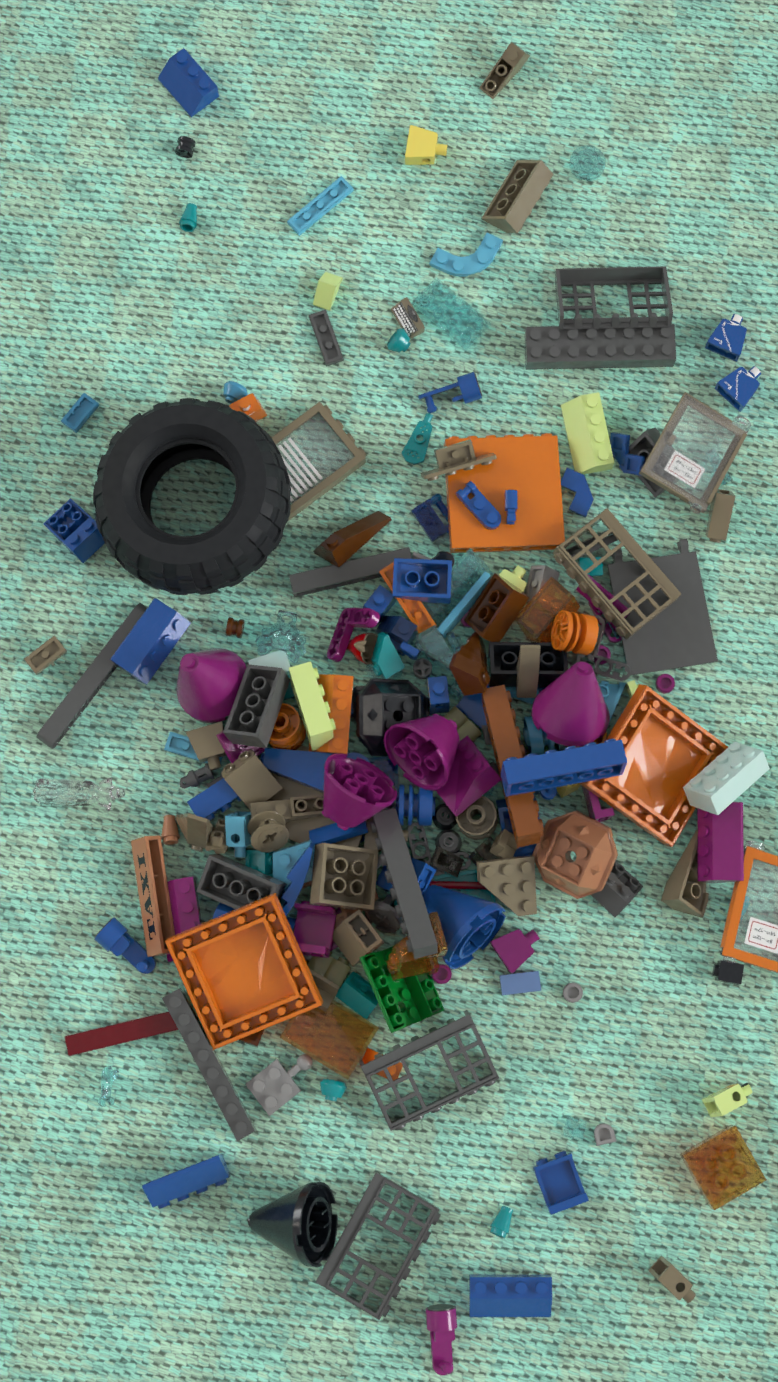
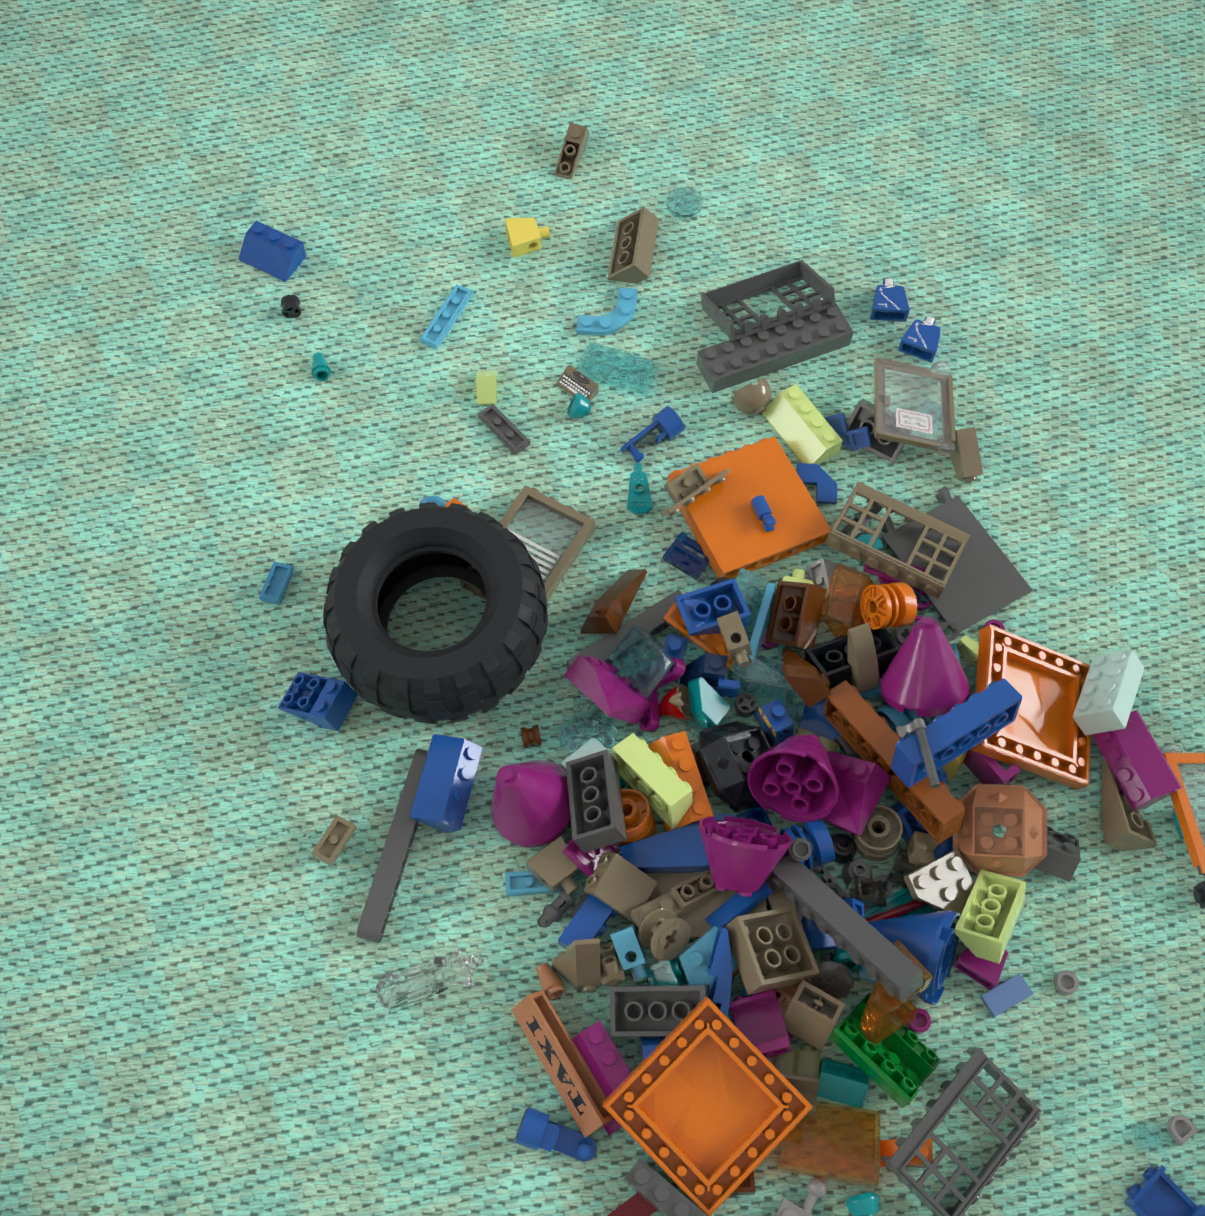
camera: 25 degrees left, 15 degrees down
(309, 615) = (608, 689): none -> magenta slope
(348, 599) = (642, 659): none -> clear light blue slope
(401, 808) = (800, 849): none -> dark grey plate
(427, 614) = (735, 638): none -> dark tan torso
(479, 506) = (732, 523): blue plate -> none
(527, 755) = (918, 727): none -> dark grey piece
(533, 918) = (991, 914): none -> yellowish green slope
(556, 390) = (753, 397): none -> dark tan cylinder

